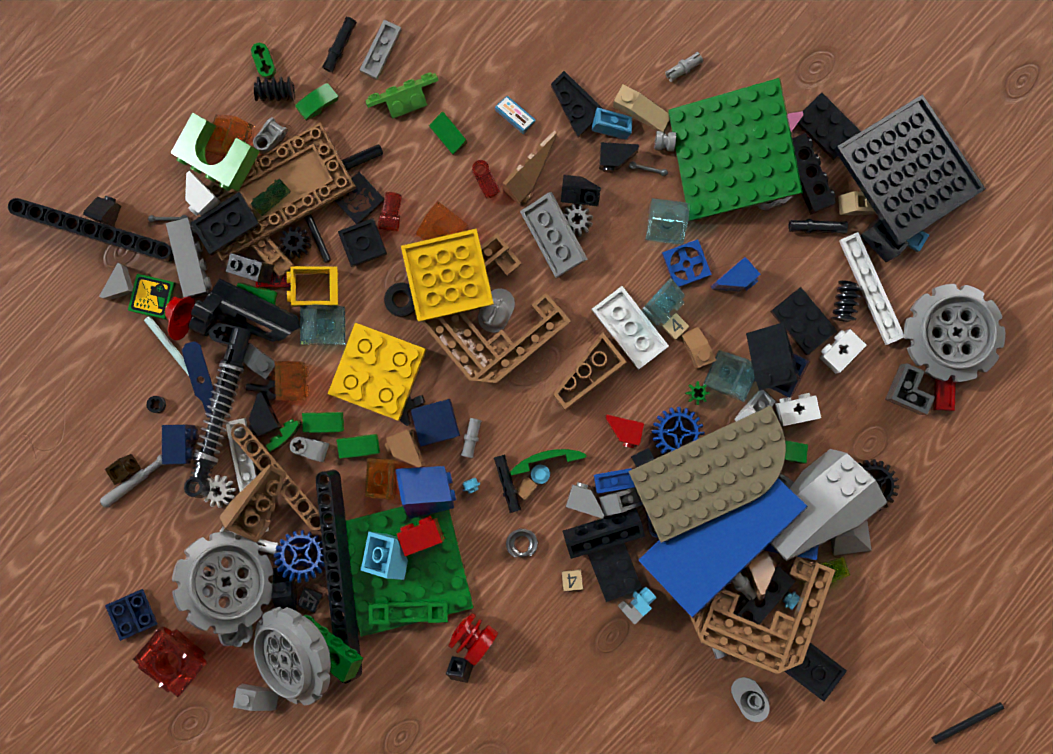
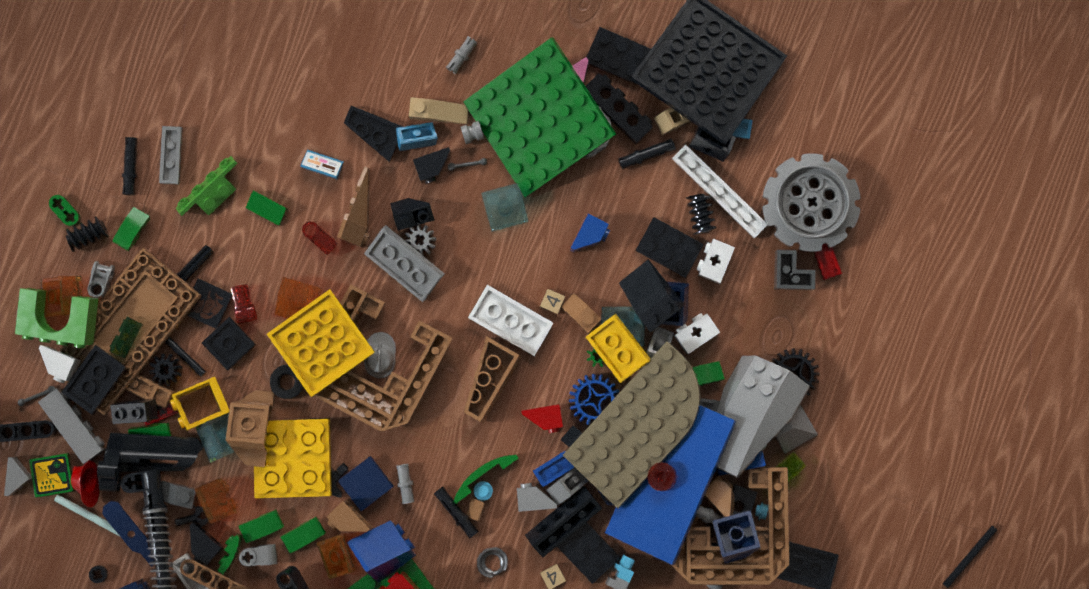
camera: 25 degrees left, 0 degrees up
(349, 325) = (249, 426): none -> medium nougat piece
(471, 485) = (423, 528): medium azure plate -> none
(663, 302) = (532, 284): clear light blue slope -> none
(683, 257) = (538, 259): blue piece -> none
(716, 530) = (662, 476): none -> clear red plate
(721, 393) = (618, 348): none -> yellow tile
(764, 616) = (736, 536): none -> dark blue slope

